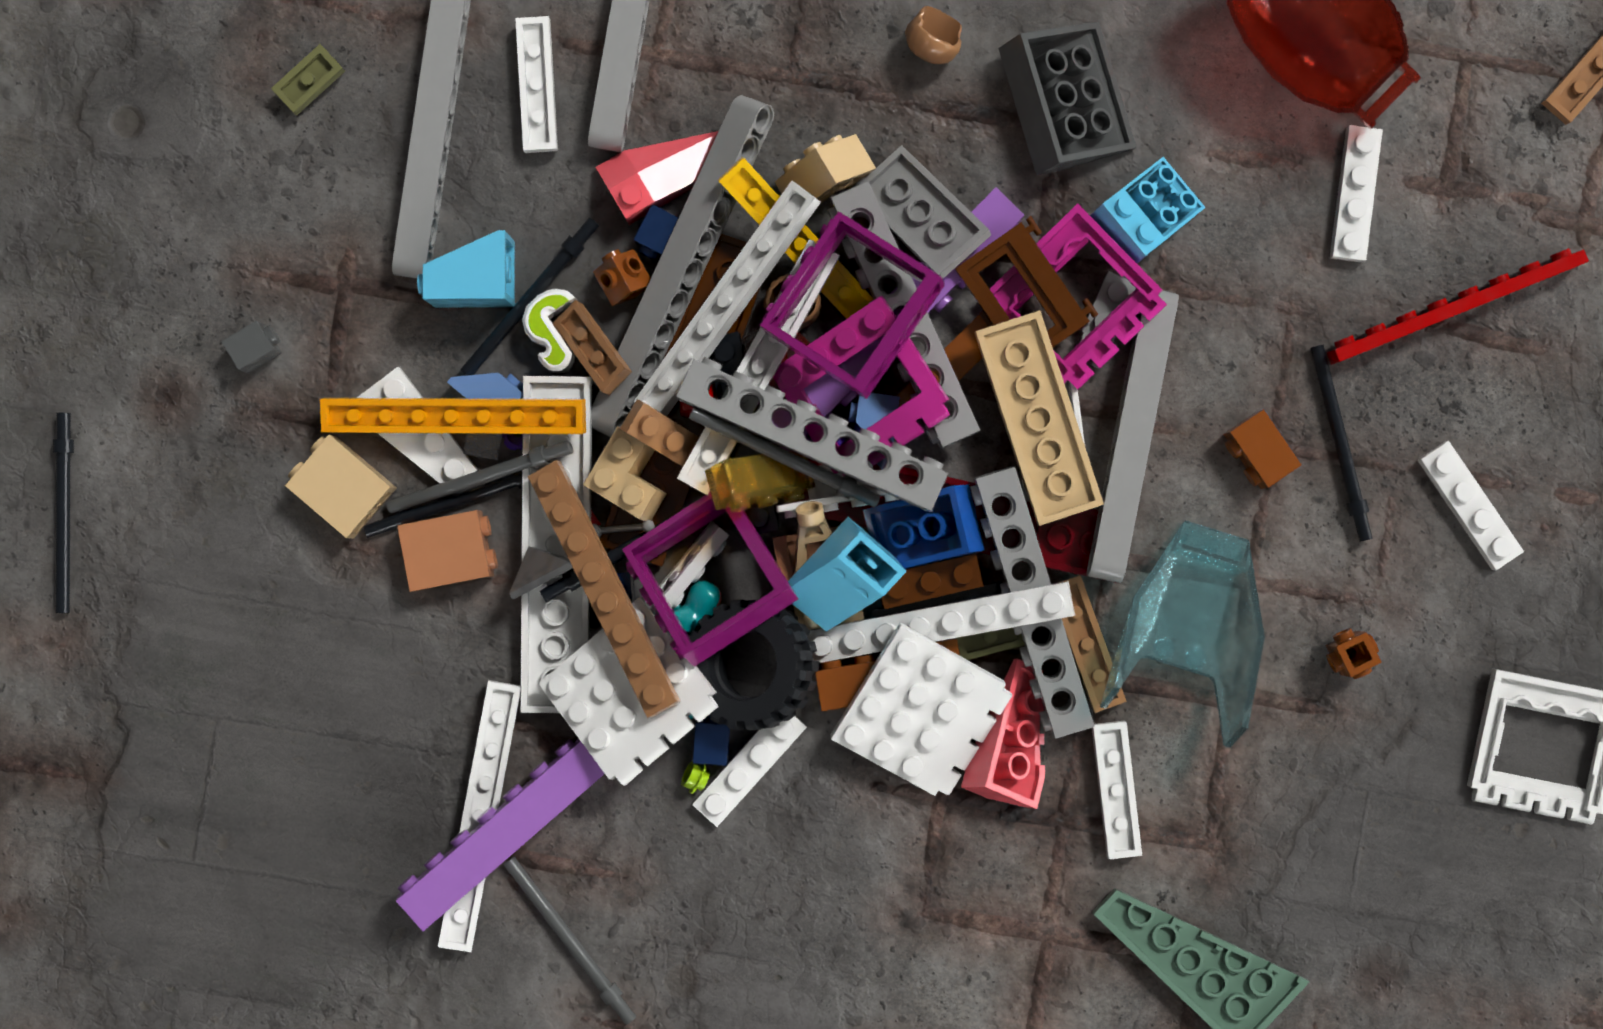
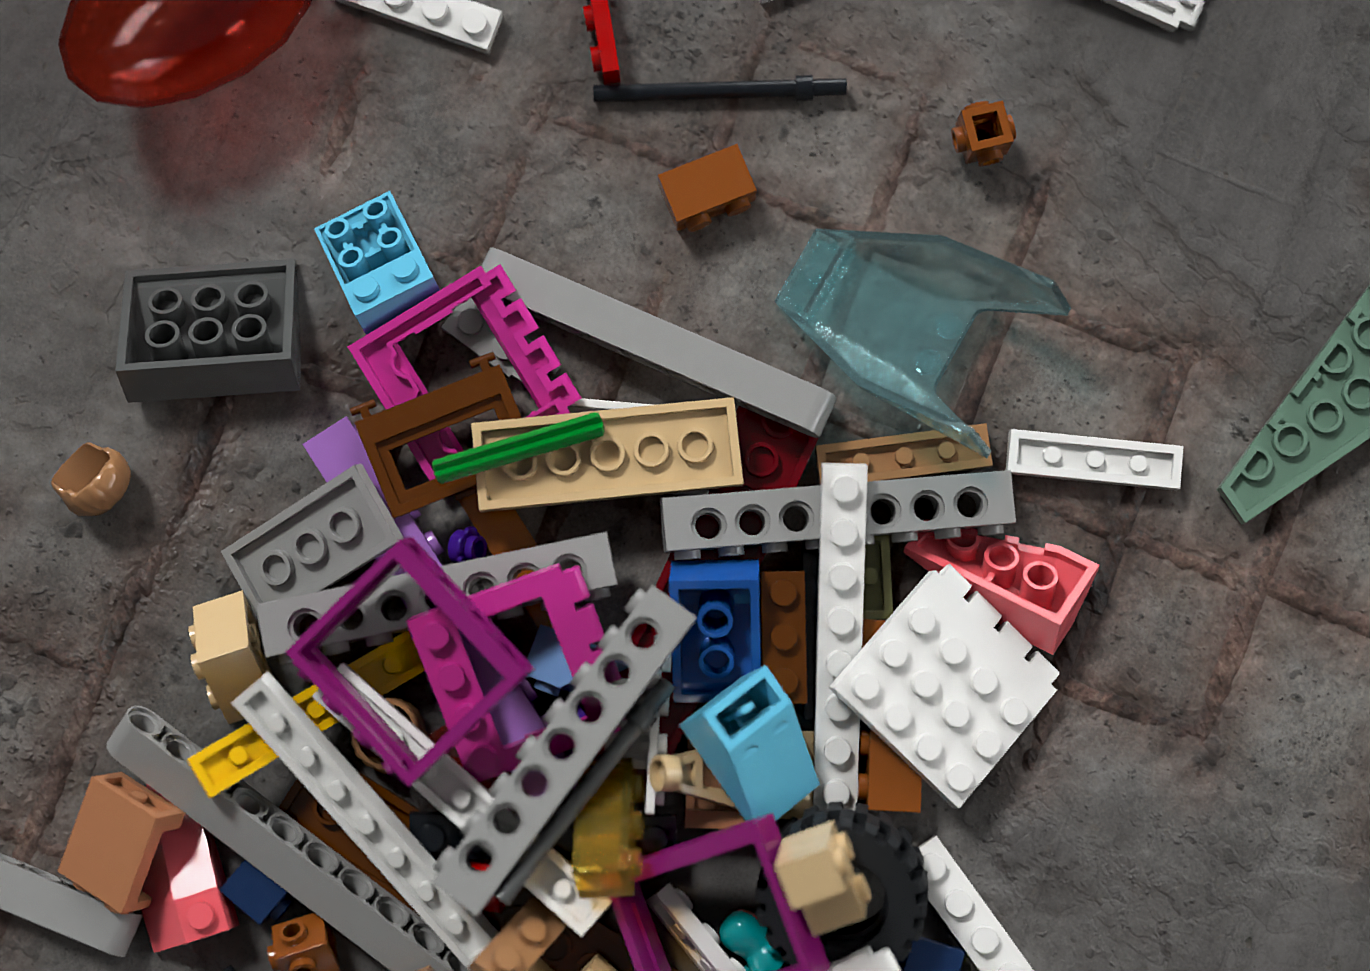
camera: 80 degrees left, 5 degrees down
(671, 120) = (117, 840): none -> nougat panel
(758, 645) = (821, 879): none -> tan brick
(946, 328) = (466, 545): none -> dark purple plate
(1029, 350) = (518, 447): none -> green axle

